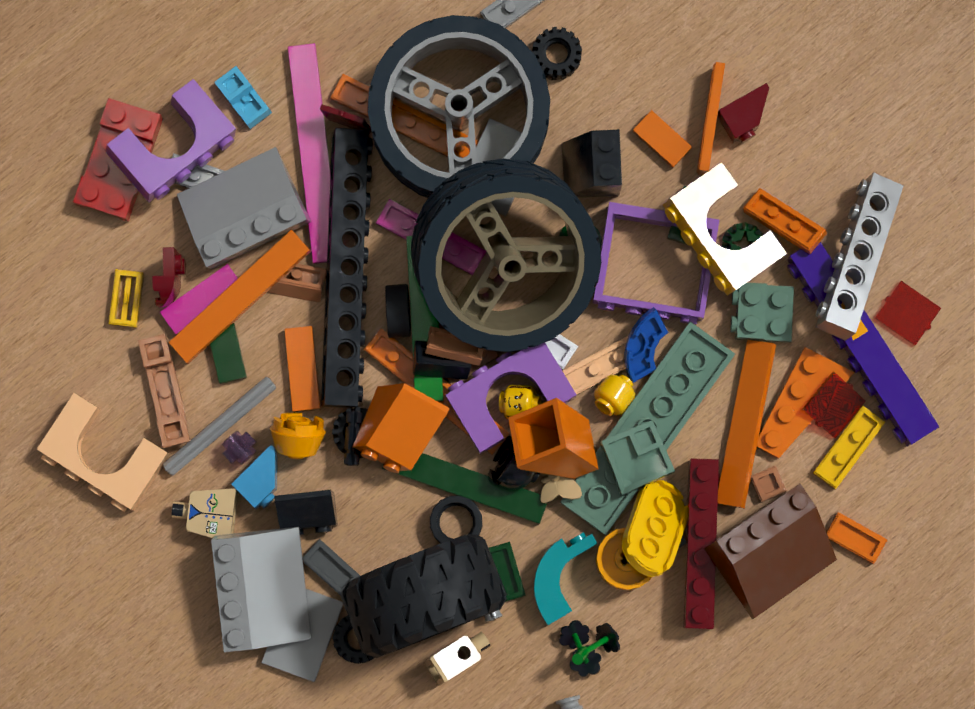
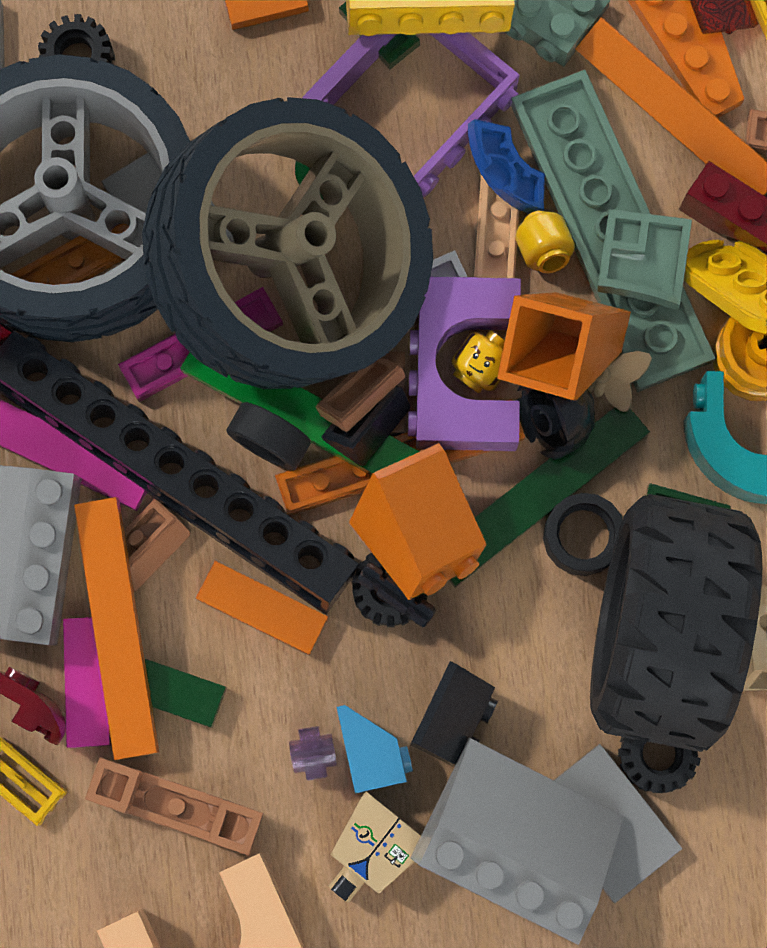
camera: 60 degrees left, 5 degrees down
(219, 426) = (267, 764): light grey axle -> none
(297, 435) = (346, 665): light orange cone -> none
(329, 566) = (544, 732): dark grey tile -> none
(593, 164) = (240, 70): black slope -> none

